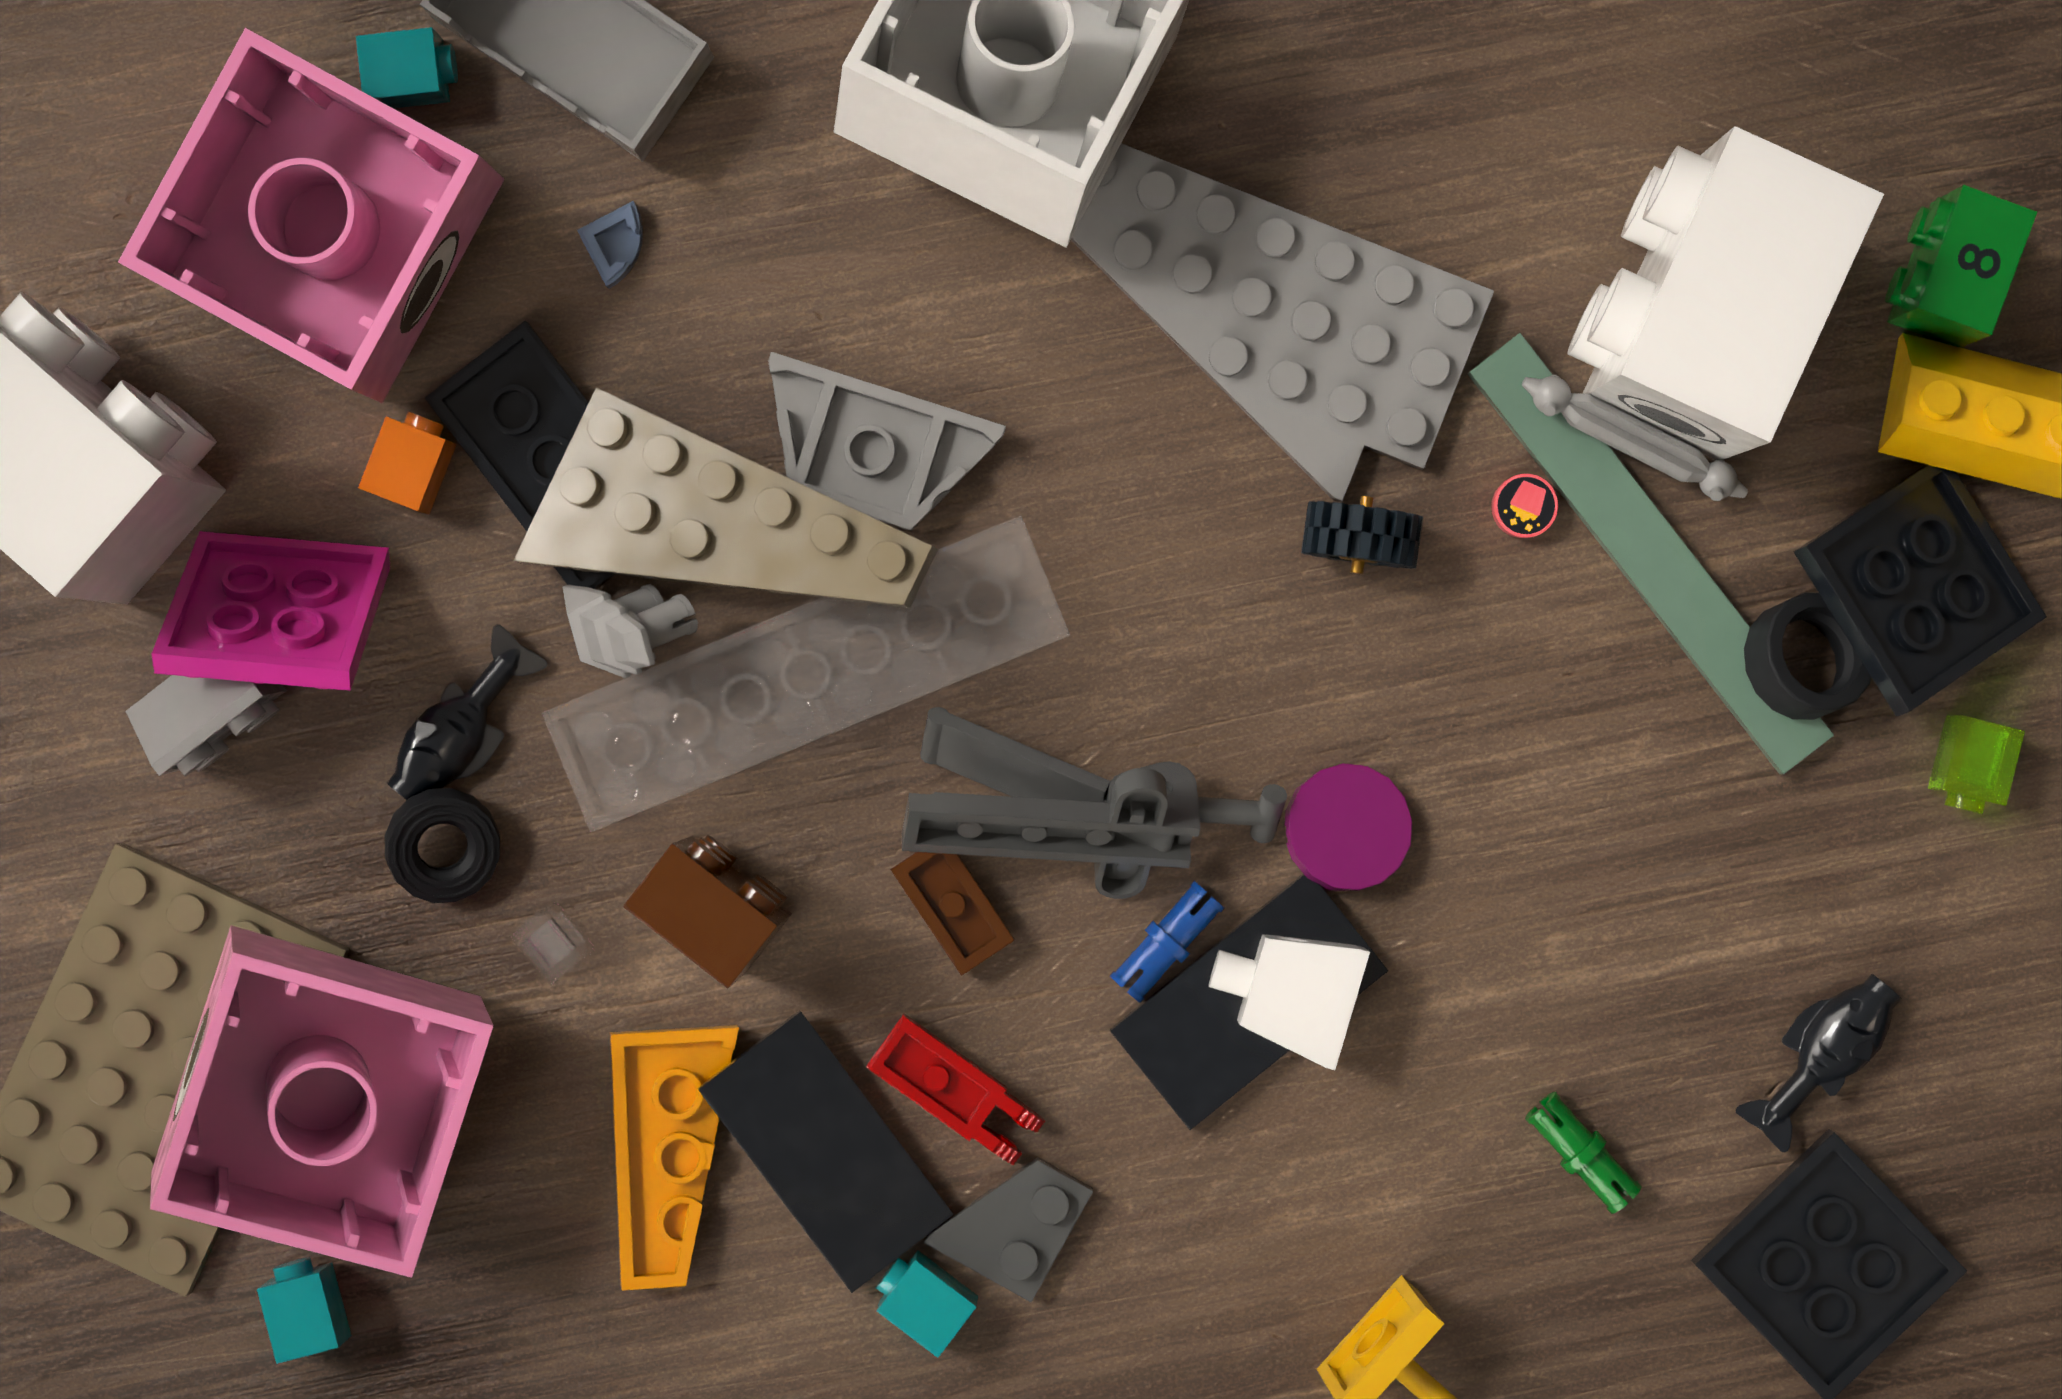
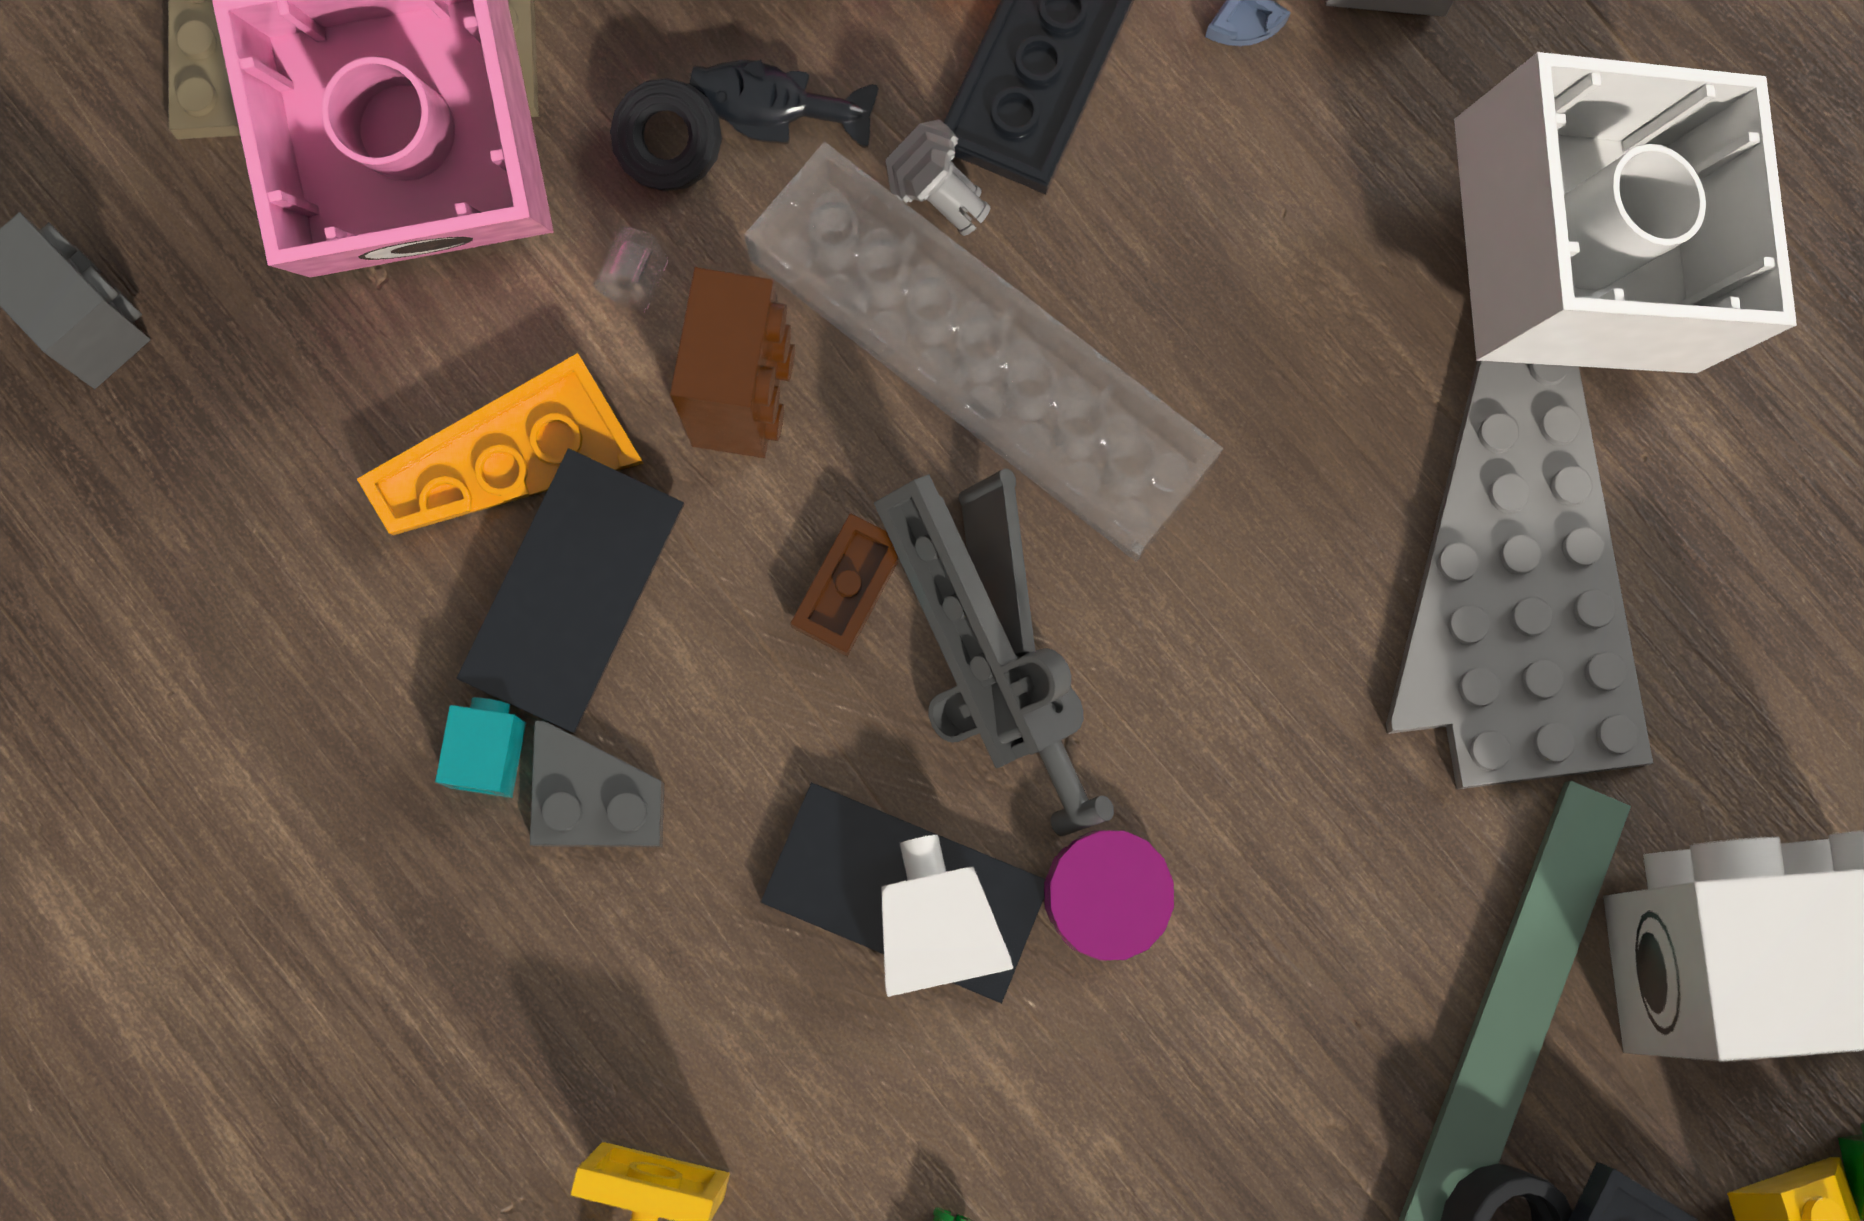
camera: 65 degrees right, 10 degrees down
(303, 1310) = (203, 224): teal brick -> none
(686, 510) = (1066, 181): wing -> none
(873, 443) = (1205, 309): light grey wing -> none
(949, 1086) = (686, 668): red hinge -> none
(1167, 941) = (918, 790): blue pin -> none
(1362, 534) = (1377, 759): black wheel -> none
(1524, 506) = (1482, 897): tile -> none
(1634, 437) = (1604, 960): light grey wheel -> none

